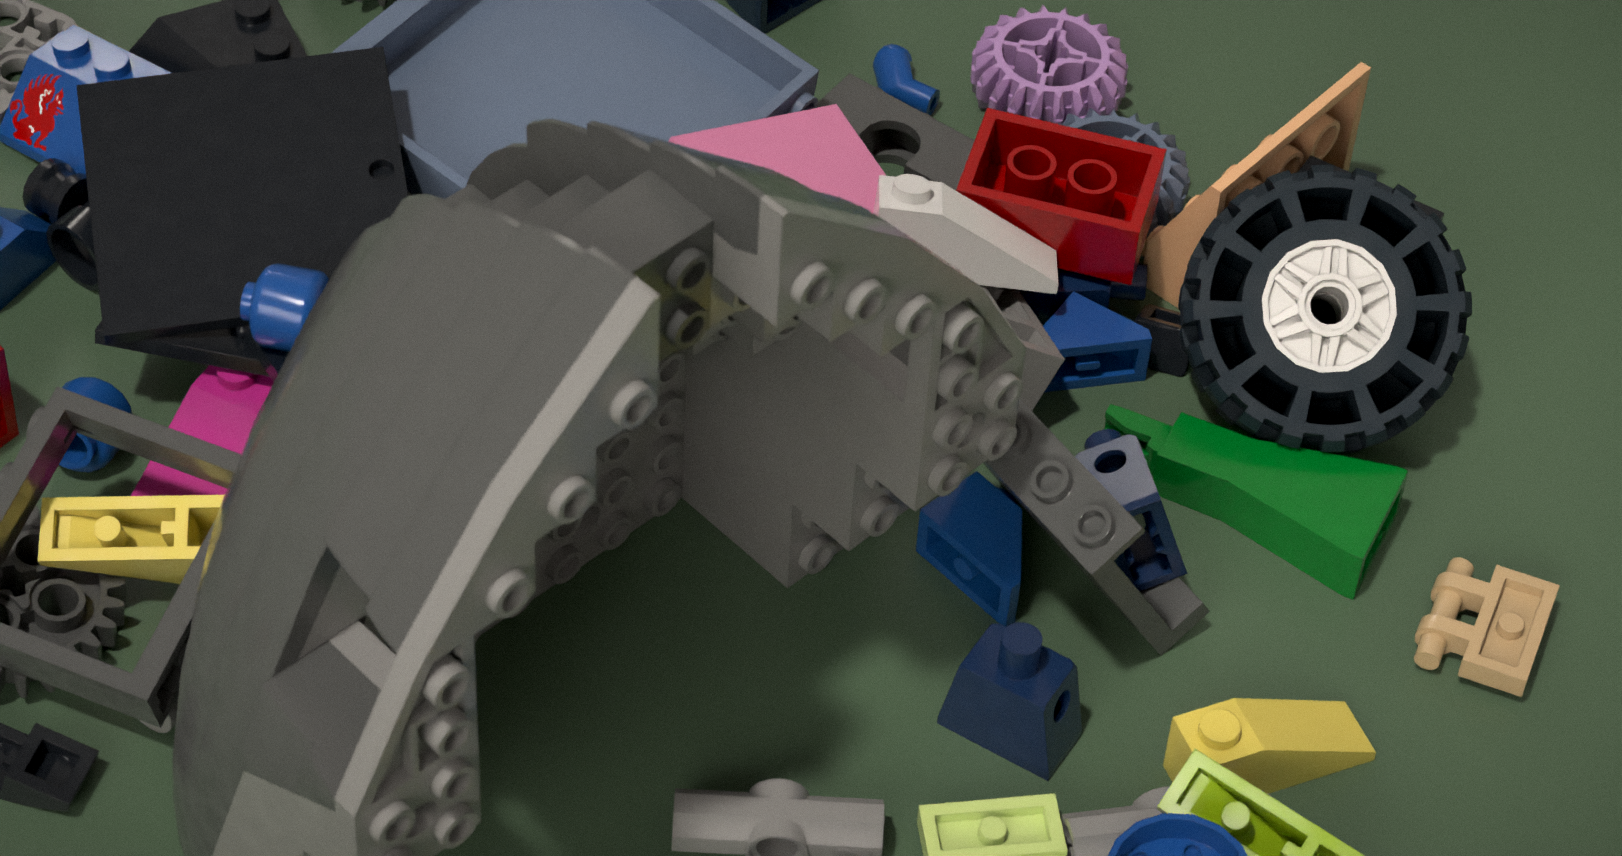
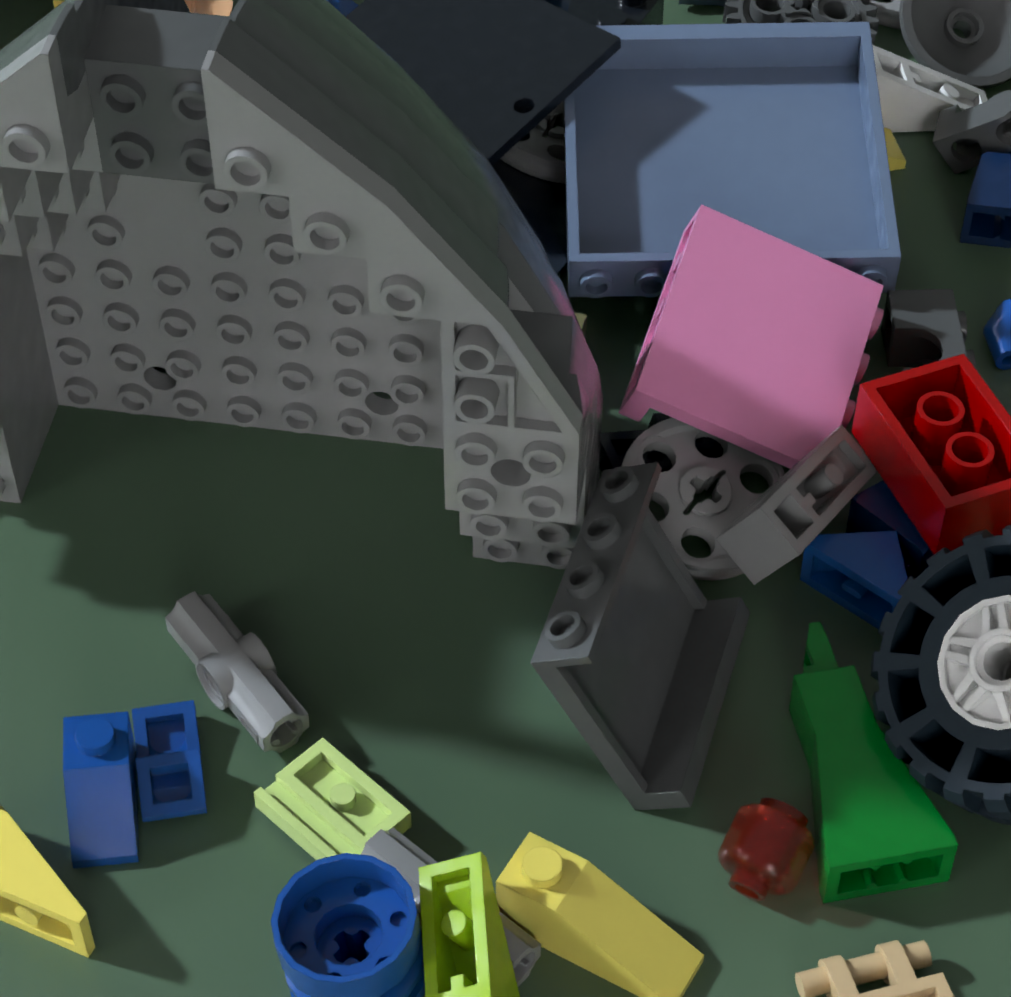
camera: 55 degrees right, 0 degrees up
(966, 234) = (821, 415): white slope -> none
(1016, 699) = (467, 715): dark blue torso -> none
(1123, 471) = (690, 678): dark blue torso -> none
(1293, 591) = (766, 849): none -> clear red head

